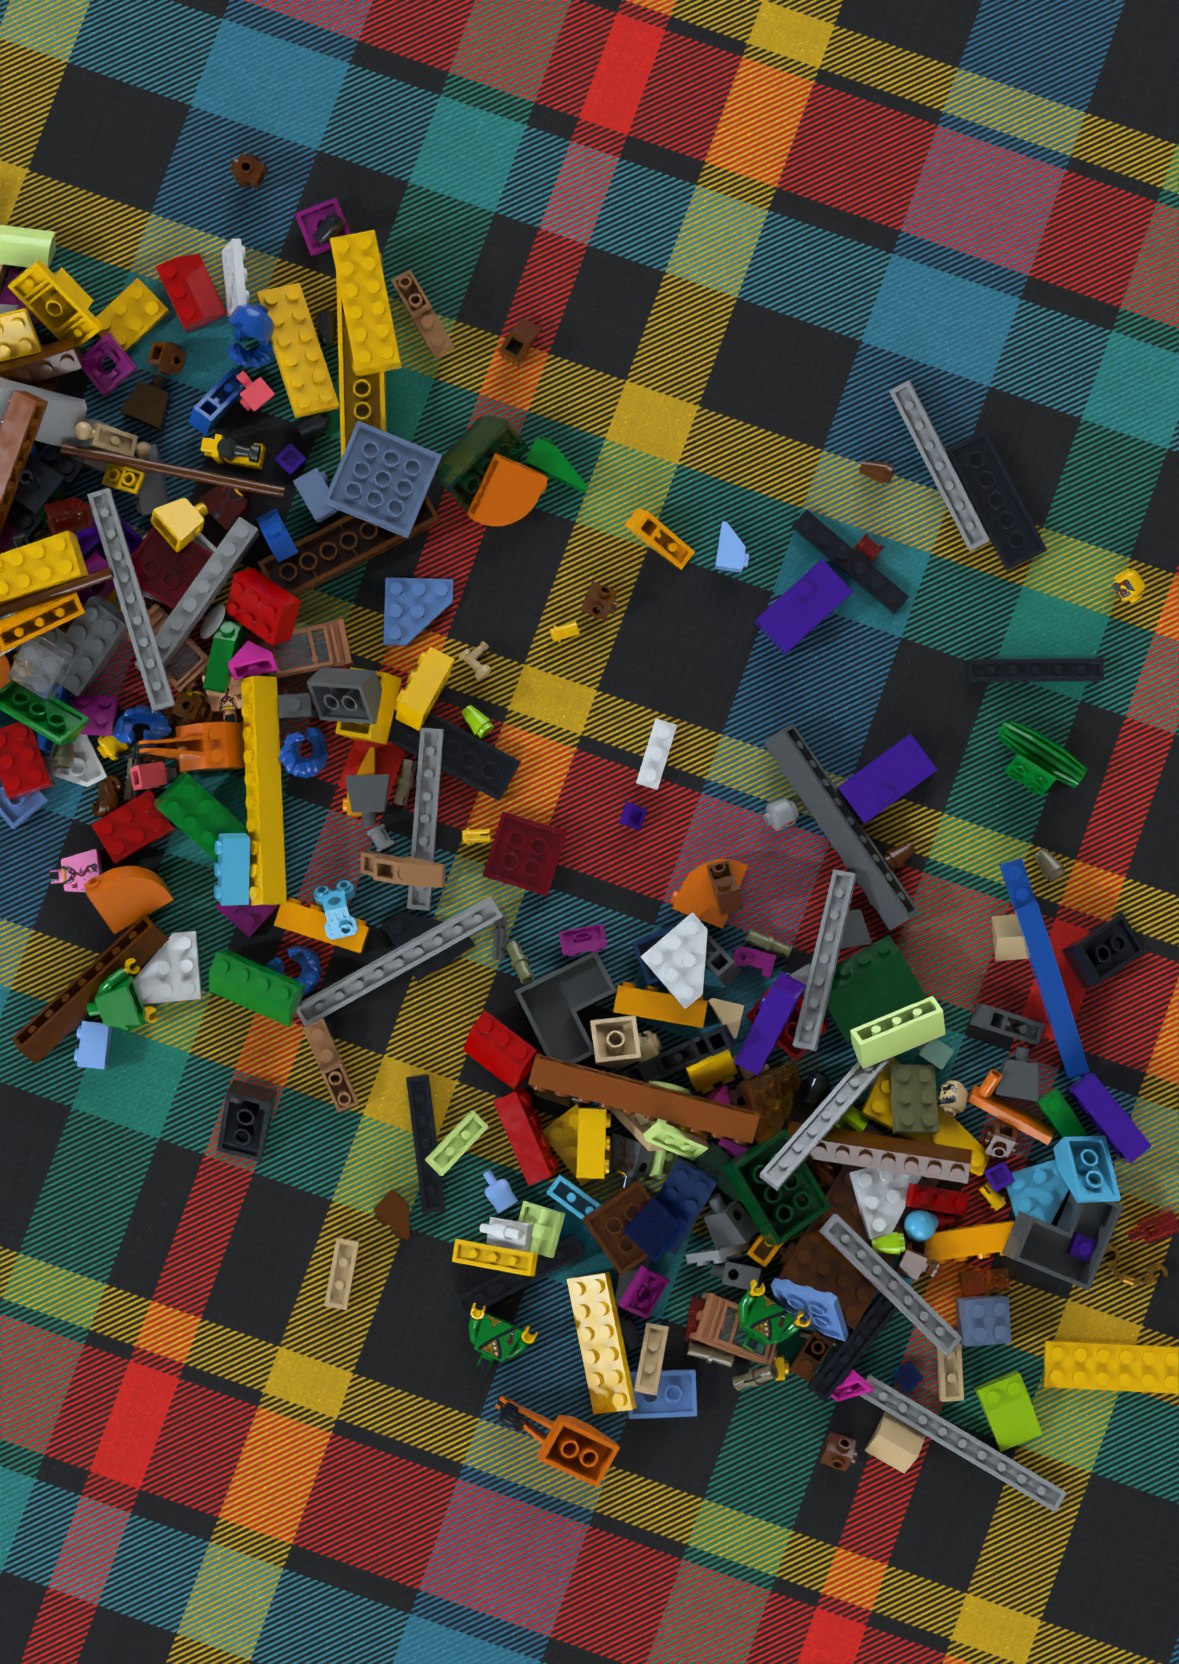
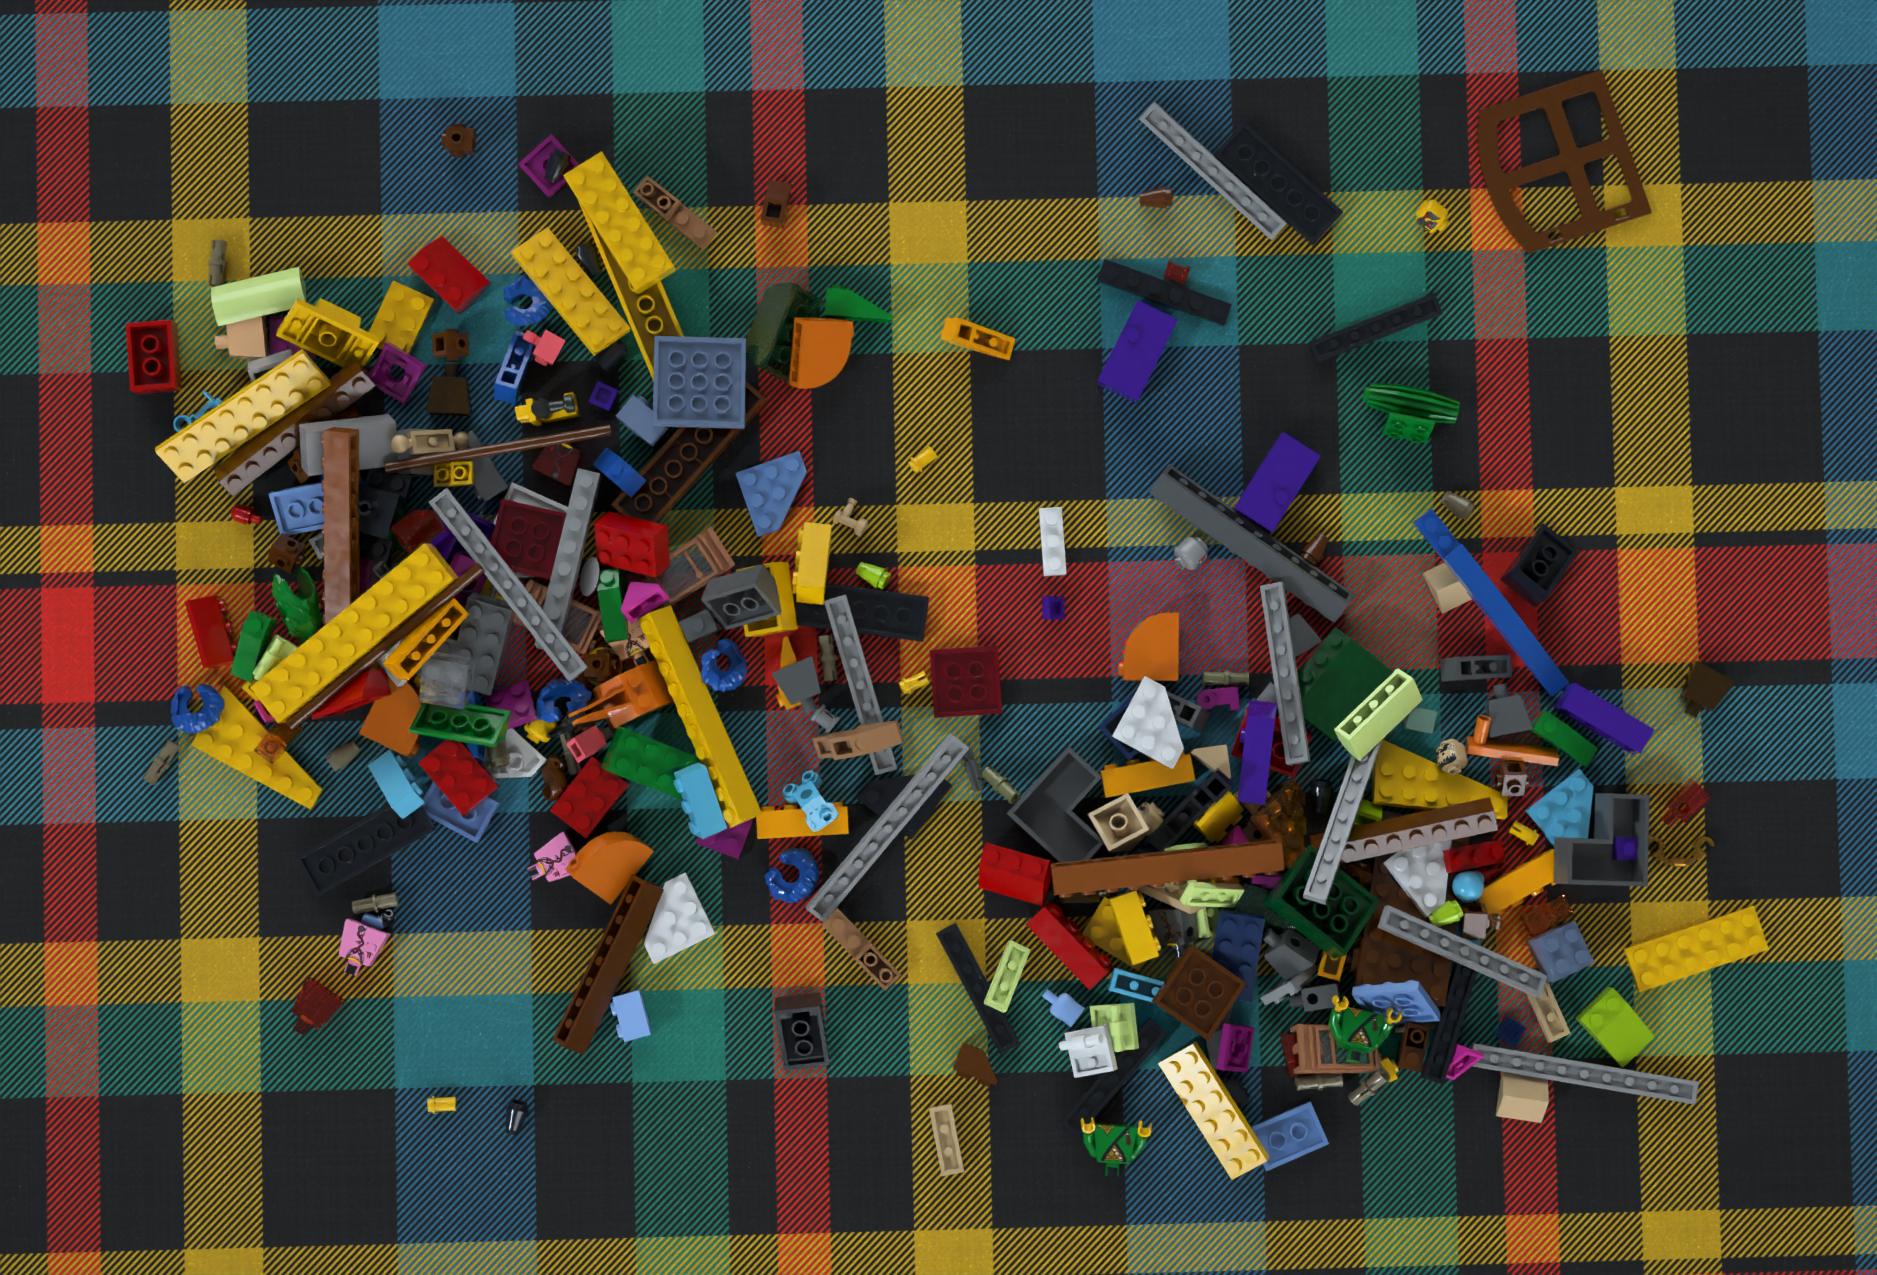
camera: 25 degrees left, 0 degrees up
(119, 1001) = (641, 965): green torso -> none
(179, 522) = (523, 495): yellow torso -> none
(234, 275) = (485, 245): white plate -> none
(253, 322) = (520, 281): blue cylinder -> none
(255, 987) = (762, 903): green slope -> none
(494, 1257) = (1084, 1069): yellow plate -> none
(569, 1444) = (1221, 1216): orange slope -> none
(583, 939) = (1051, 741): magenta plate -> none
(599, 601) = (945, 419): reddish brown brick -> none
(651, 1359) = (1266, 1107): tan plate -> none
(654, 1229) = (1223, 985): clear blue tile -> none
(724, 887) = (1165, 641): reddish brown slope -> none
(730, 551) = (1048, 325): light blue slope -> none
(838, 1451) = (1473, 1126): reddish brown brick -> none
(913, 1099) = (1416, 771): olive plate -> none
(999, 1176) = (1523, 812): dark purple plate -> none
(1087, 1168) = (1602, 773): medium azure slope -> none

